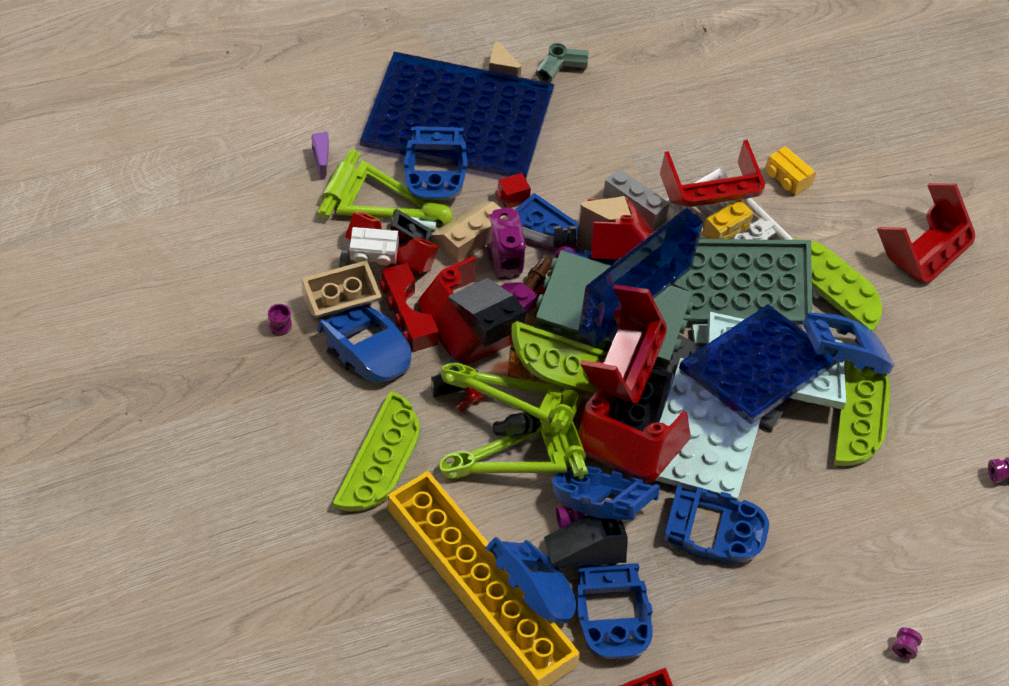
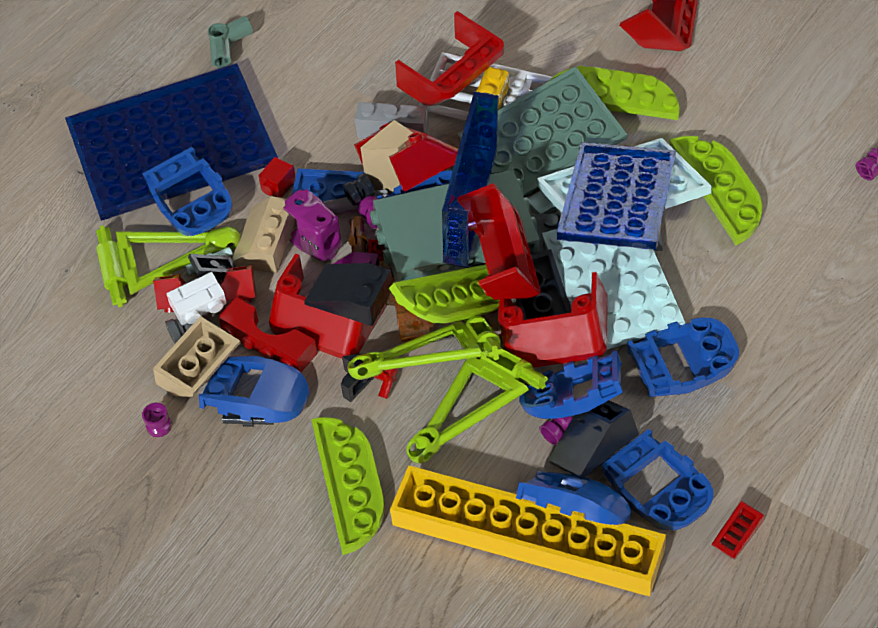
camera: 25 degrees left, 0 degrees up
(320, 150) = (70, 248): medium lavender slope -> none
(503, 62) = (175, 69): tan slope -> none
(517, 425) = (451, 377): black arm -> none
(790, 171) = (503, 19): yellow brick -> none
(870, 354) = (691, 134): blue slope -> none

